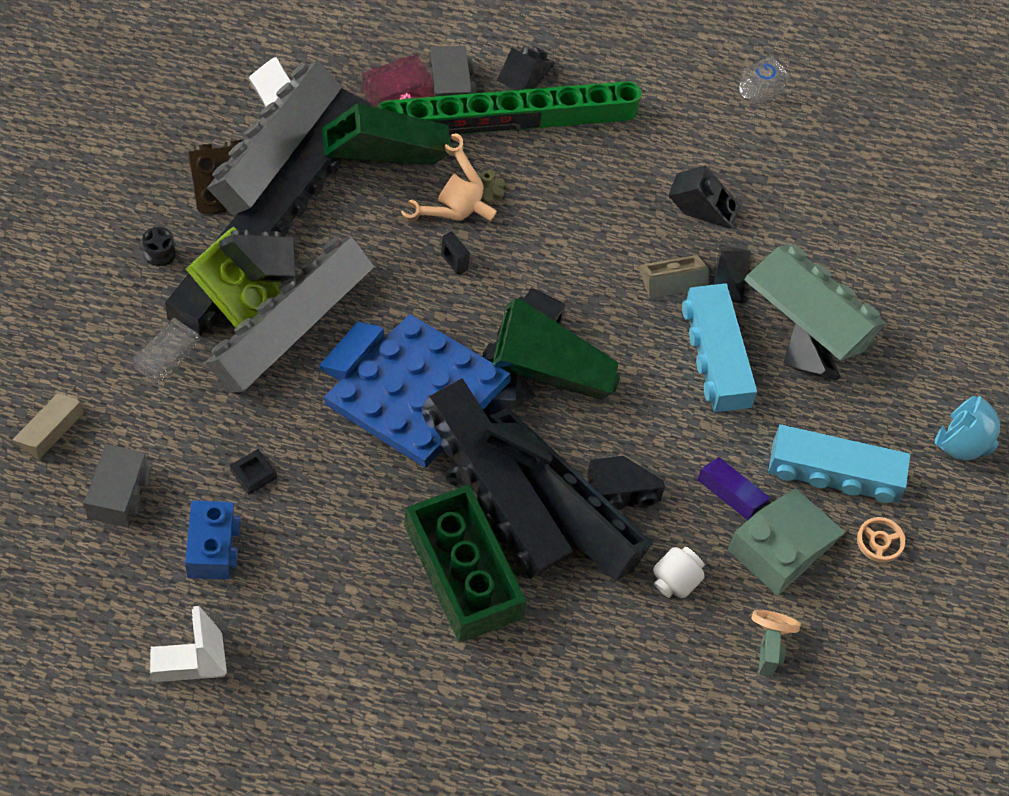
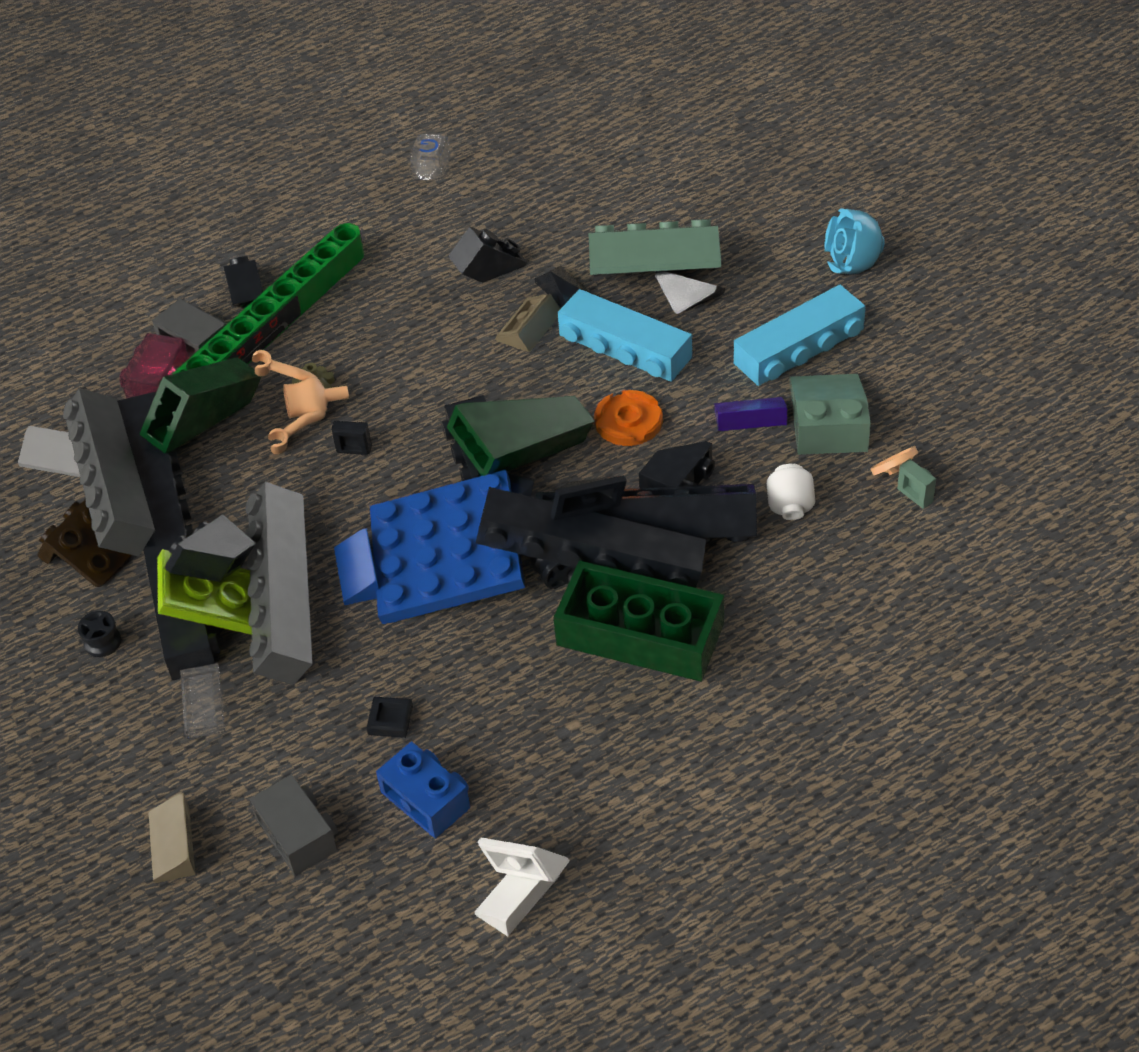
camera: 35 degrees left, 10 degrees down
(649, 421) = (628, 427): none -> orange tile
(880, 534) = (882, 367): light nougat piece -> none

